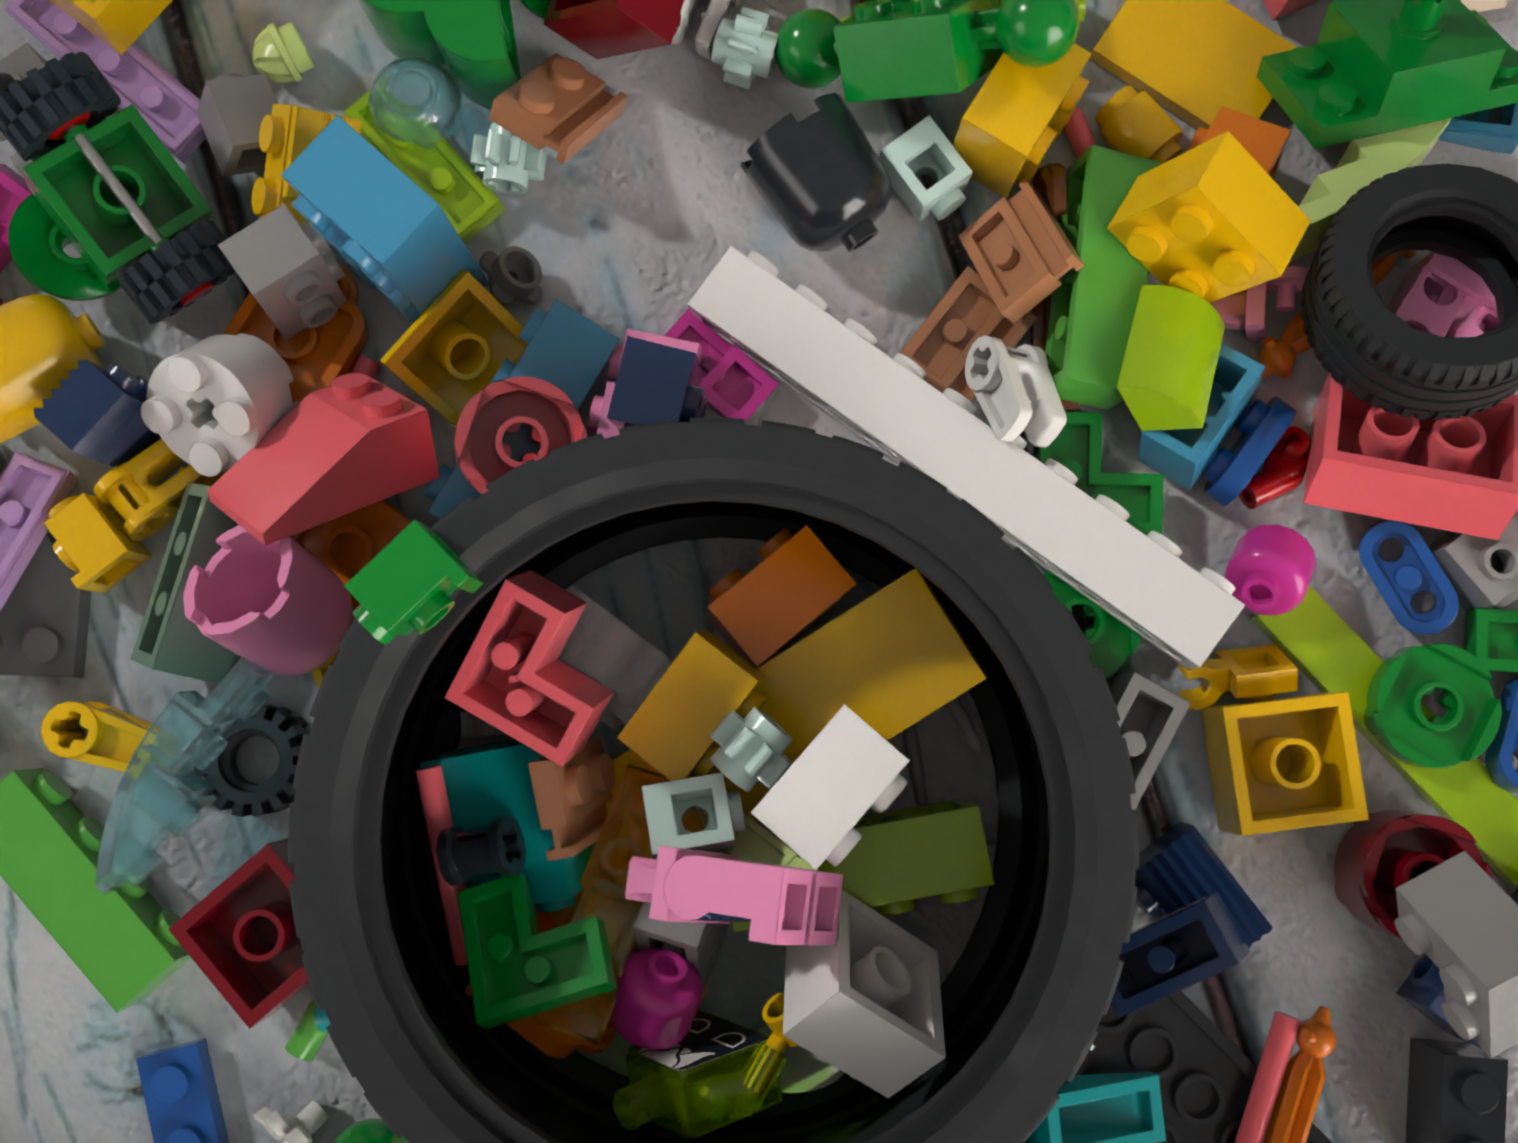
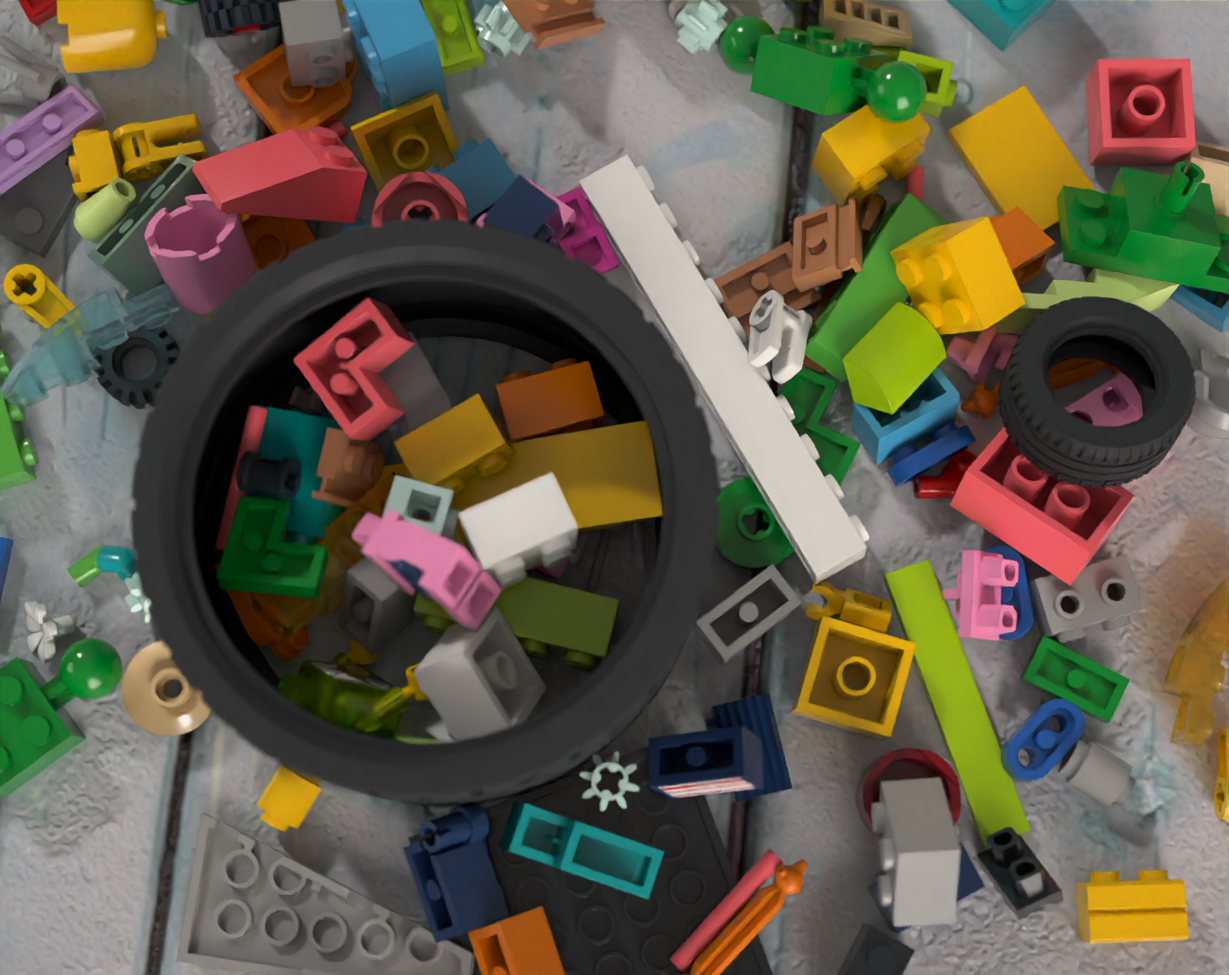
camera: 20 degrees right, 5 degrees down
(99, 413) = (149, 83): dark blue brick -> none
(125, 592) = (103, 210): none -> yellowish green cone
(218, 399) = (228, 106): white brick -> none
(248, 936) = (89, 478): dark red brick -> none
(409, 584) = (309, 258): green brick -> none
(513, 275) = (468, 111): dark grey plate -> none
(656, 1000) = (339, 631): dark pink head -> none
(751, 749) = (478, 480): light aqua gear -> none
(821, 177) = (711, 135): black cylinder -> none
(928, 153) = (793, 149): light aqua brick -> none
(1139, 126) = (955, 194): yellow brick -> none
(1271, 569) = (906, 542): dark pink head -> none
(1385, 598) = (979, 595): none -> bright pink hips
(1397, 714) = (1006, 688): green plate -> none

